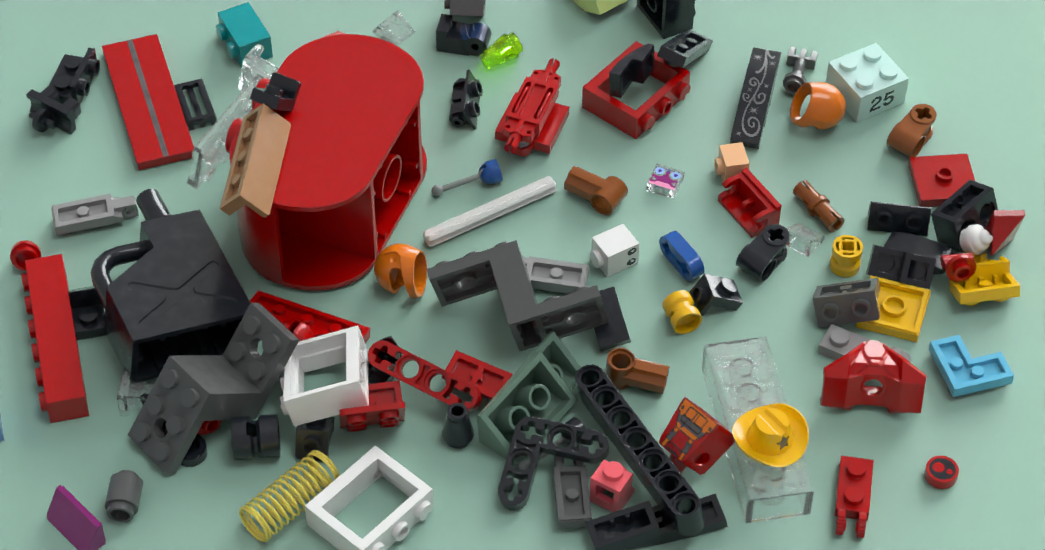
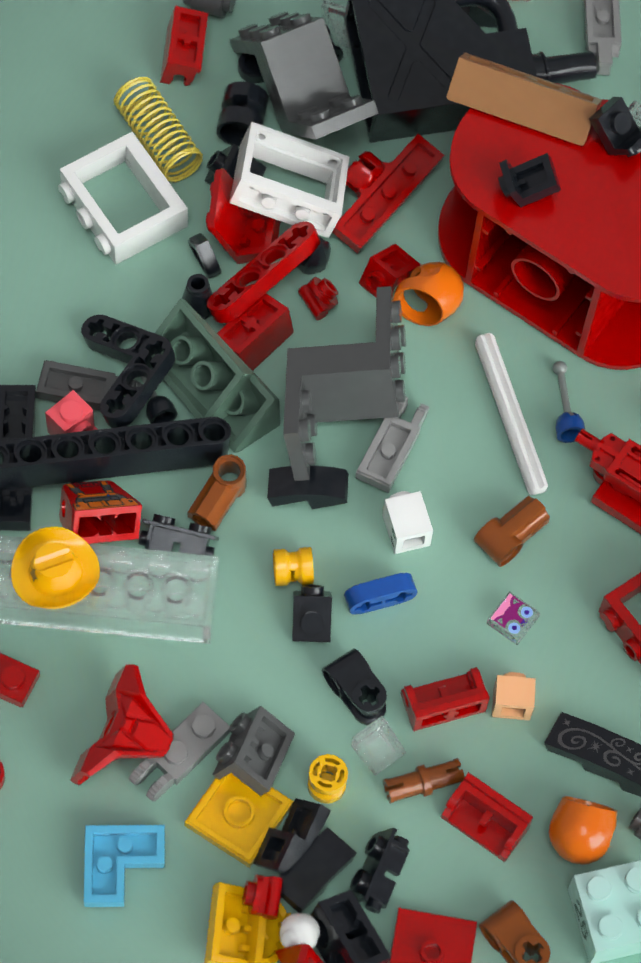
camera: 100 degrees right, 15 degrees up
(188, 501) = (184, 45): none -> red hinge
(341, 142) = (529, 180): none -> black bracket
(387, 305) = (387, 269): none -> red bracket
(409, 435) = (204, 254): none -> black tile
(425, 348) = (319, 296): none -> red plate
(683, 383) = (163, 535): none -> hinge
(831, 164) = (486, 817): none -> red hinge

